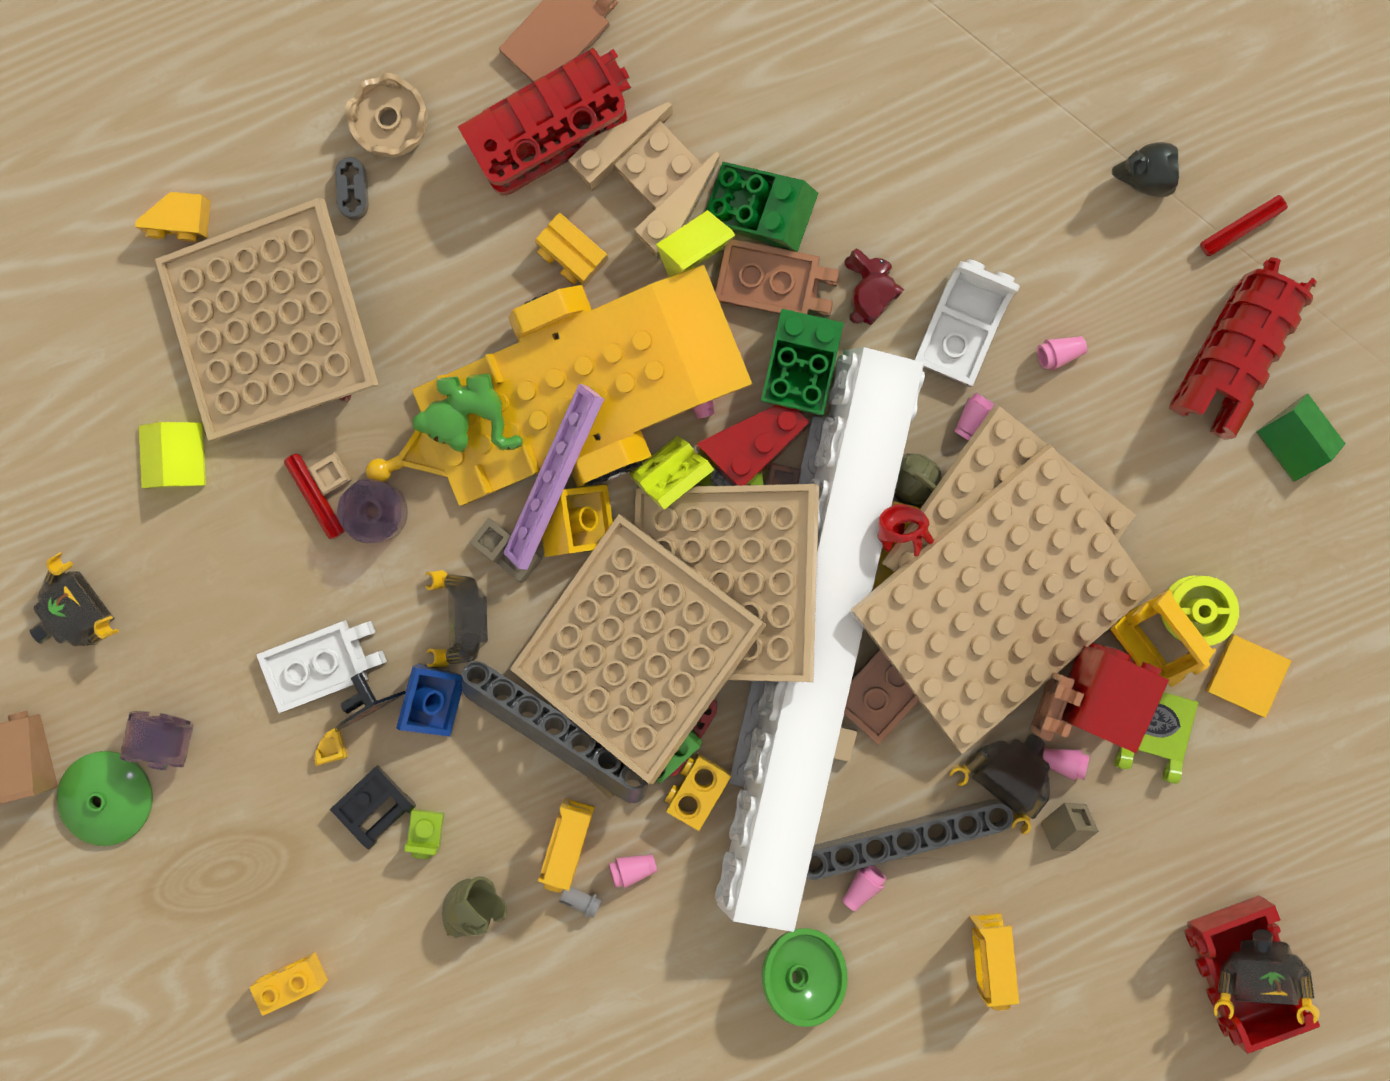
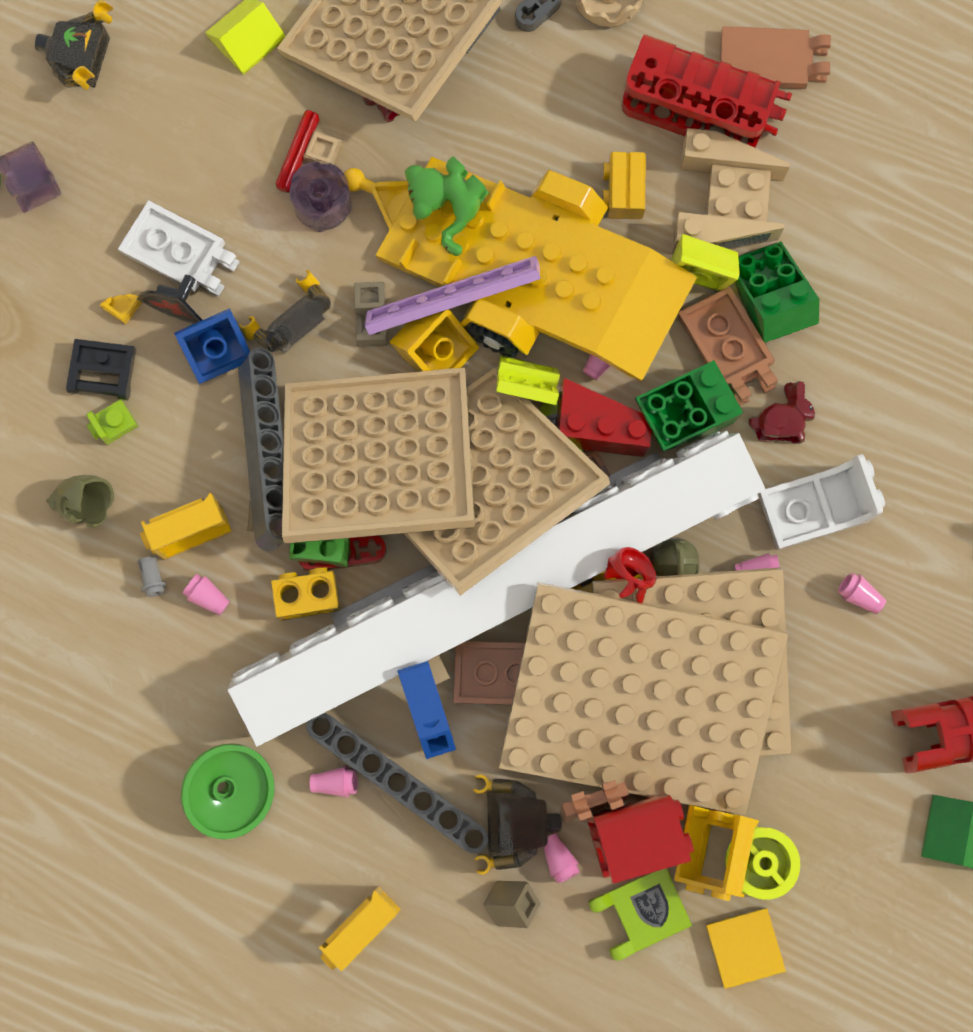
camera: 50 degrees right, 10 degrees down
(872, 774) = (426, 709): none -> blue slope

